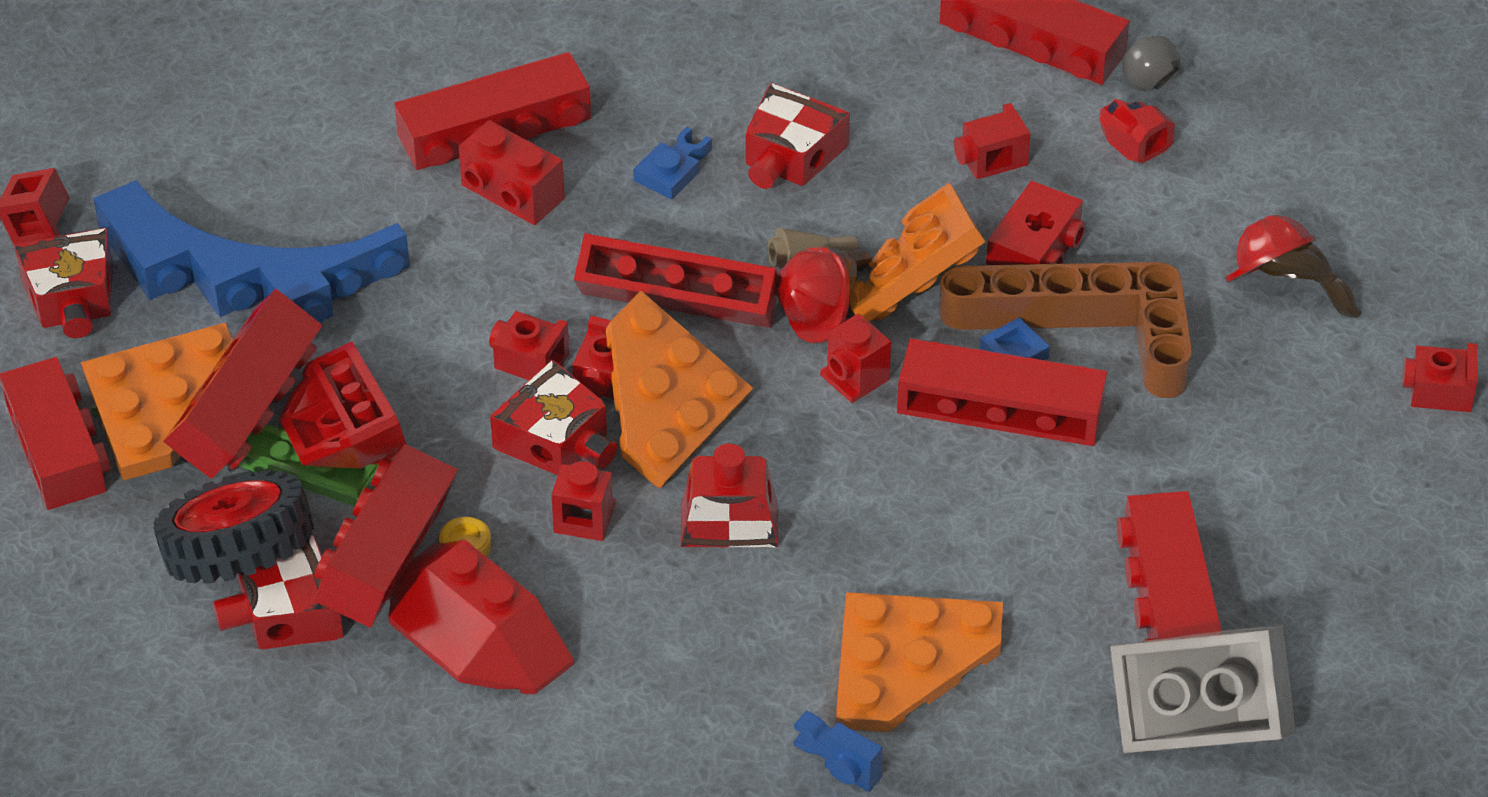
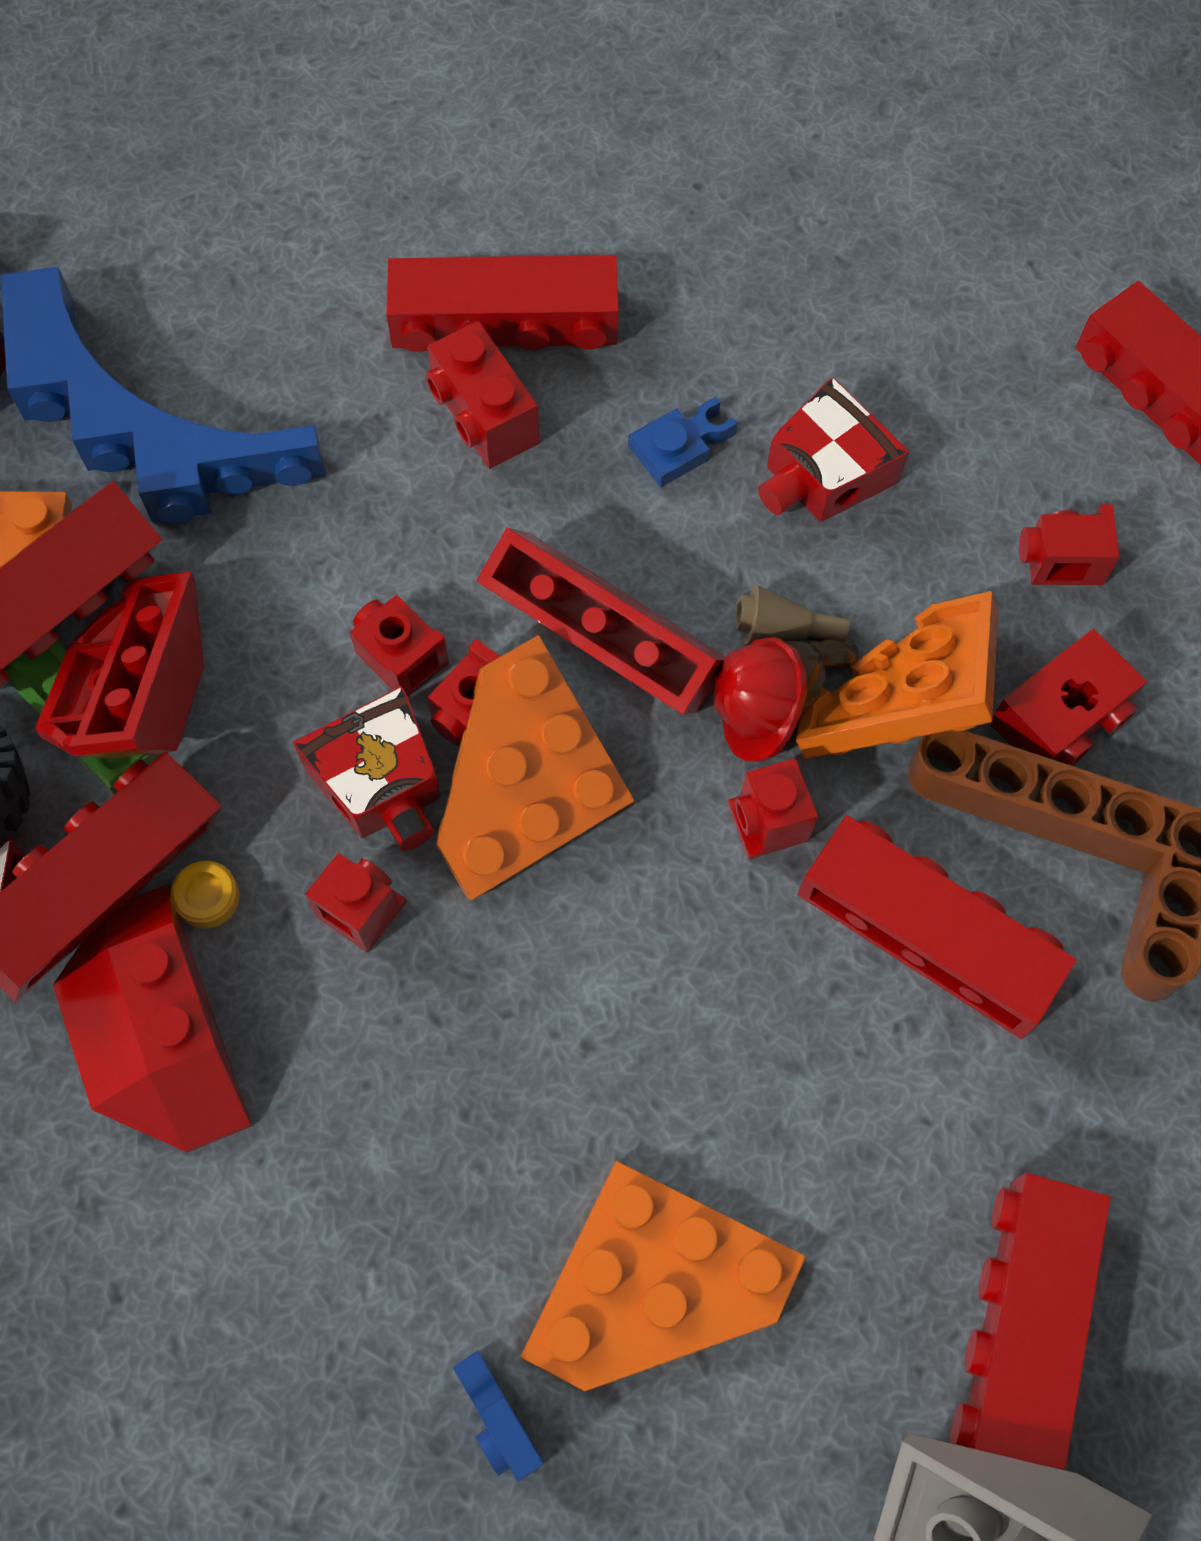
camera: 20 degrees right, 20 degrees up
(729, 501) = (527, 979): torso -> none
(1016, 339) = (979, 854): blue tile -> none

